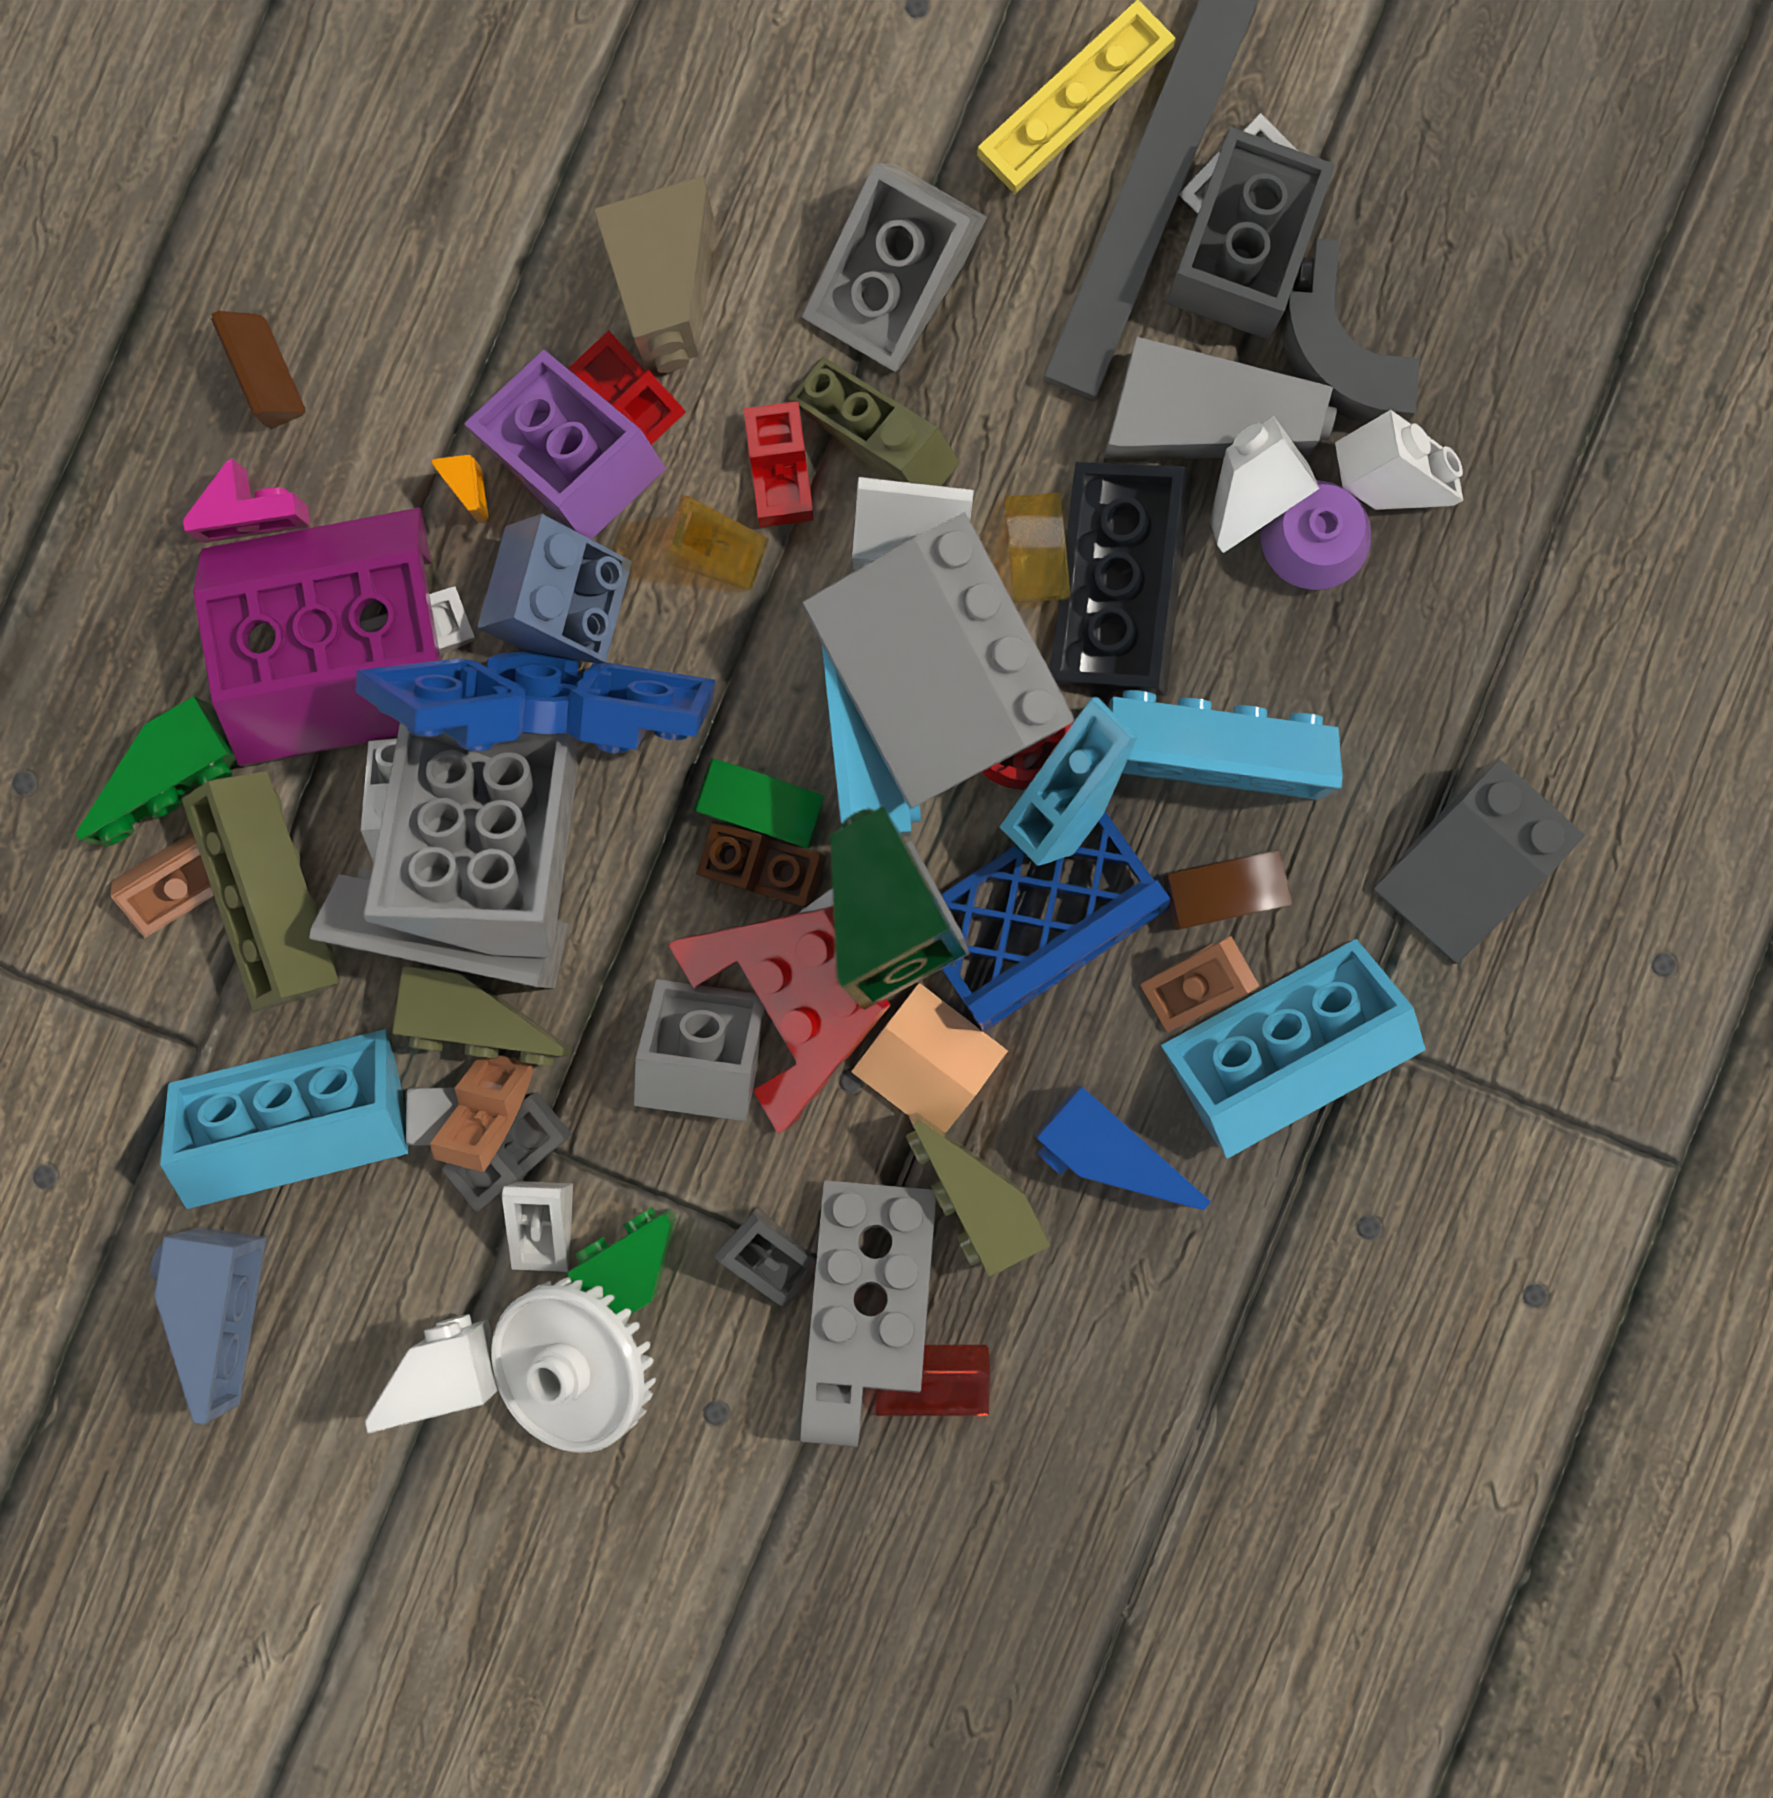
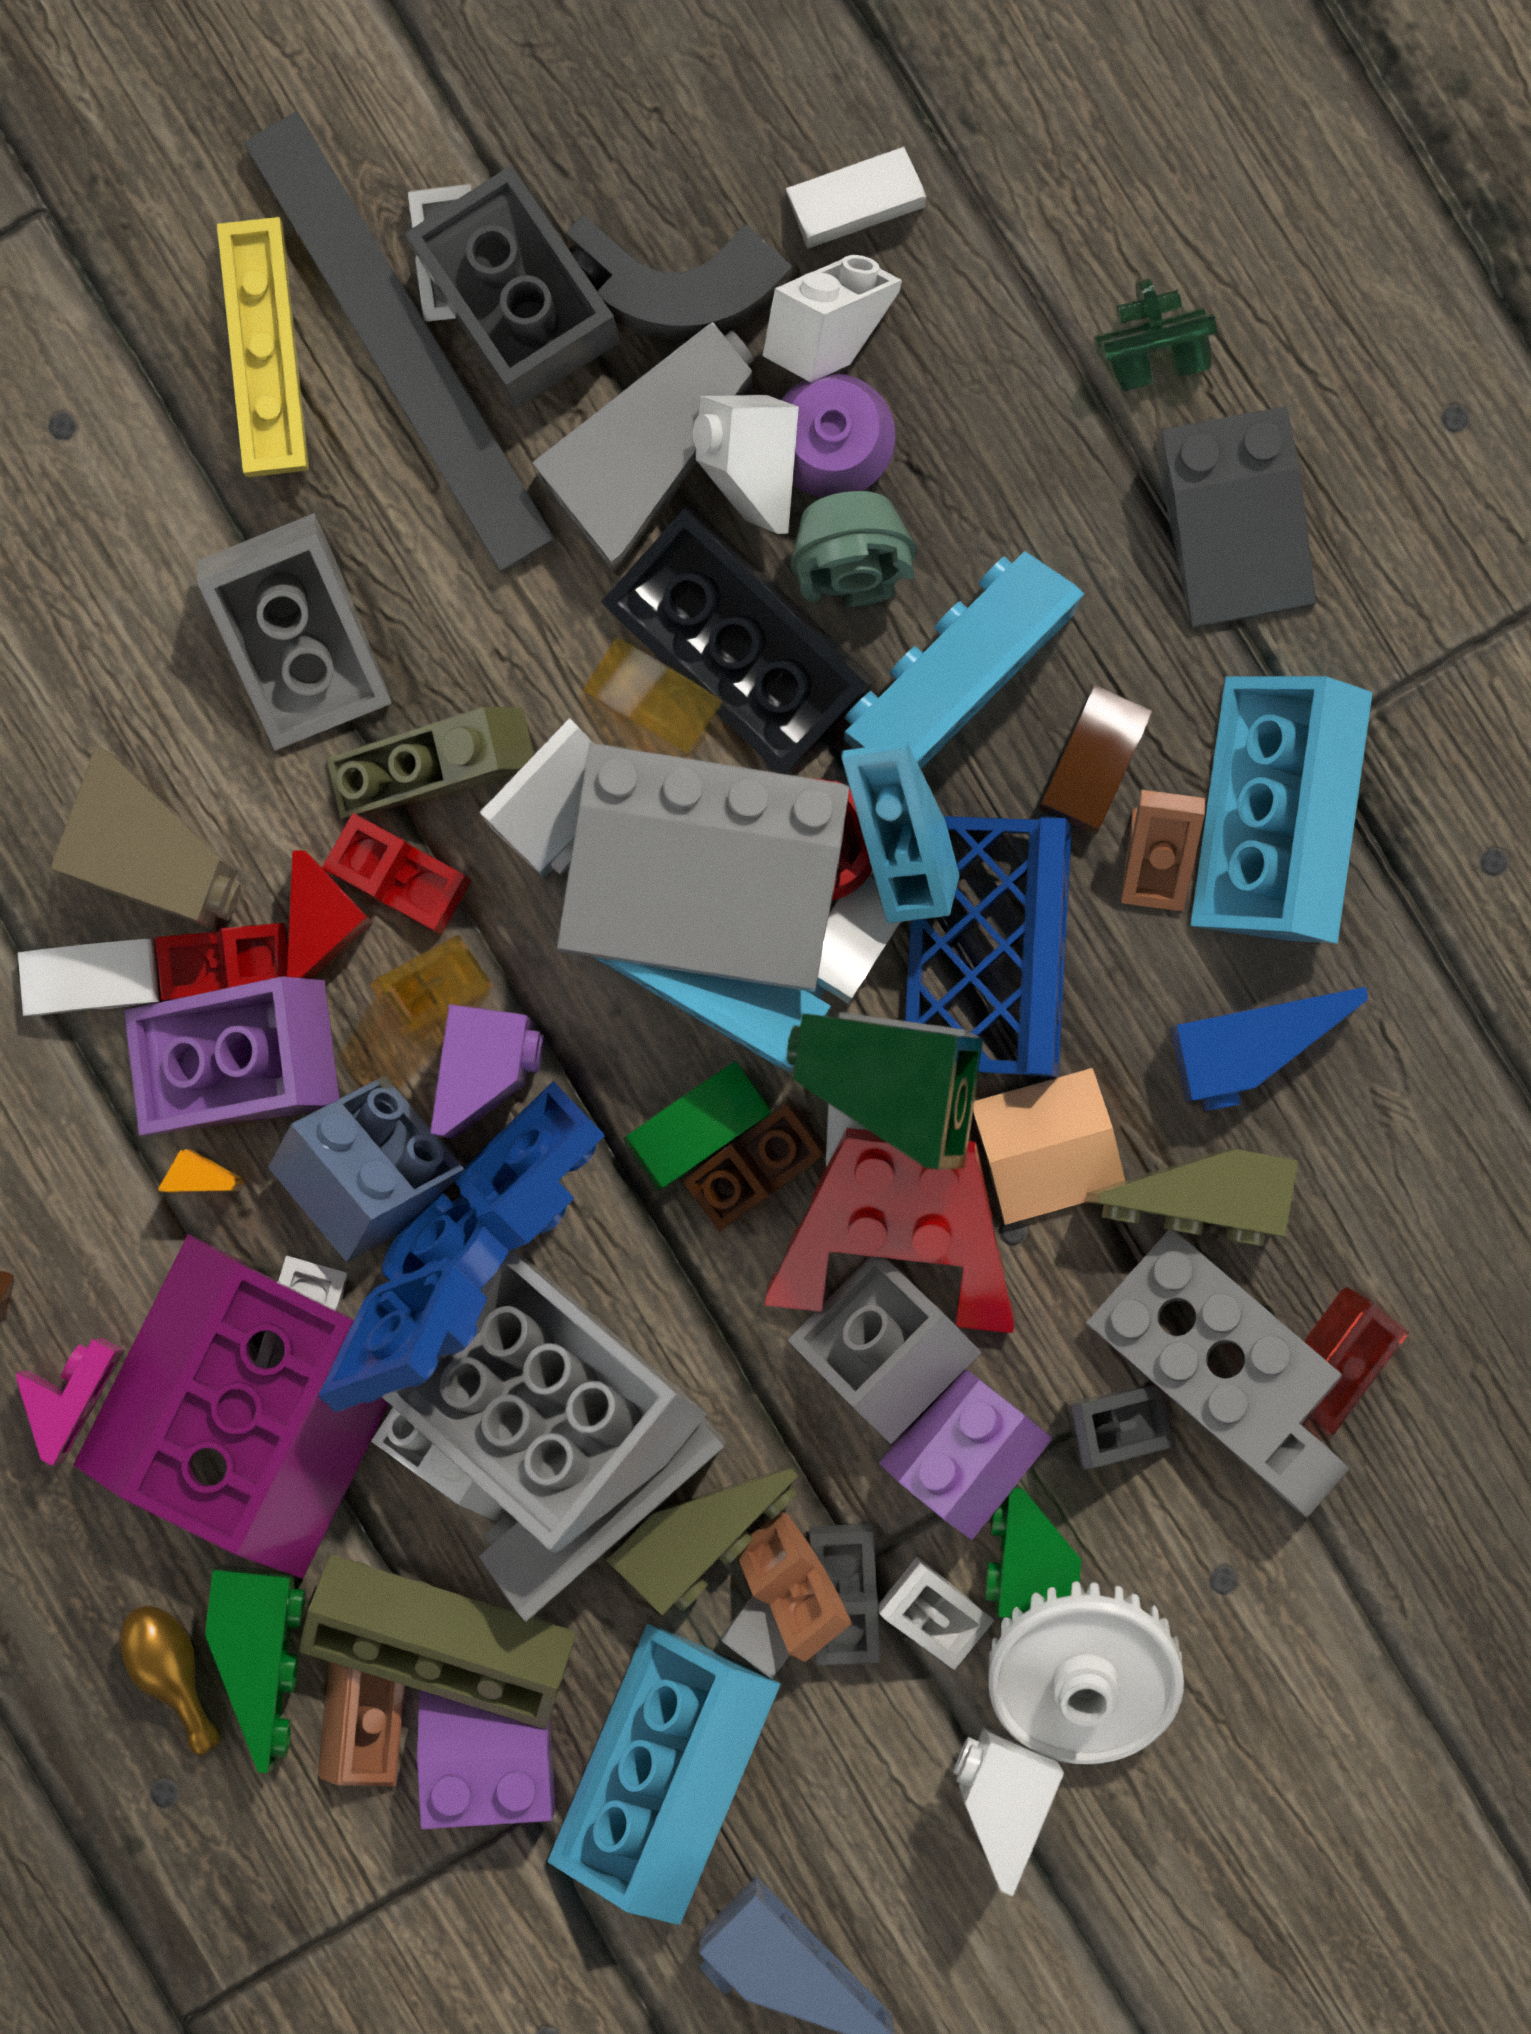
camera: 55 degrees left, 0 degrees up
(107, 713) = (163, 1666): none -> pearl gold piece
(194, 989) = (481, 1767): none -> medium lavender slope
(547, 306) = (88, 977): none -> white slope
(664, 1163) = (965, 1453): none -> medium lavender slope
(683, 618) = (481, 1065): none -> medium lavender slope
(707, 432) = (320, 918): none -> red slope
(968, 813) = (853, 940): none -> white slope
(1246, 605) = (852, 549): none -> sand green cone
(1496, 428) = (856, 197): none -> white slope
(1578, 728) = (1184, 334): none -> clear green hips

